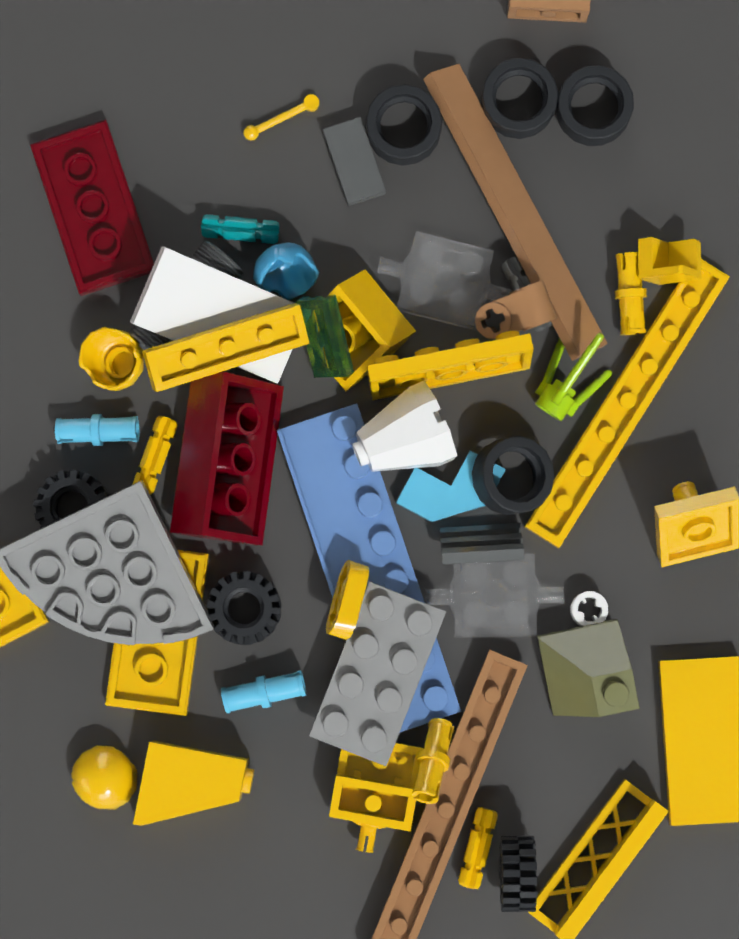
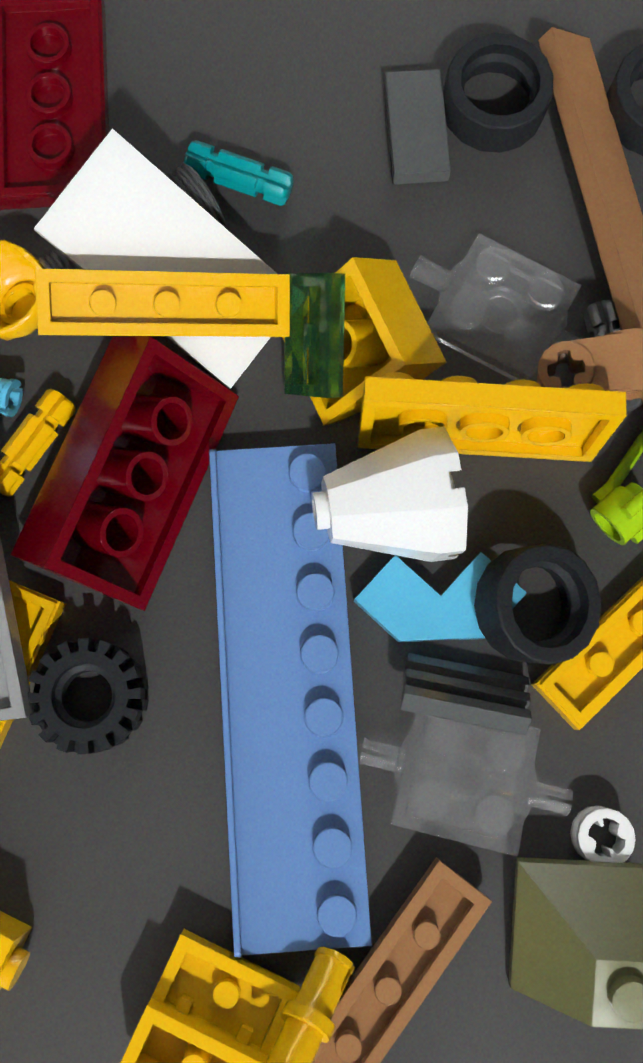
camera: 10 degrees right, 5 degrees down
(263, 691) = (79, 832): medium azure pin -> none
(285, 270) = (284, 231): dark azure hair -> none
(310, 103) = (377, 45): yellow hinge -> none
(347, 599) = (241, 727): yellow beam -> none
(377, 674) = (255, 859): light grey plate -> none

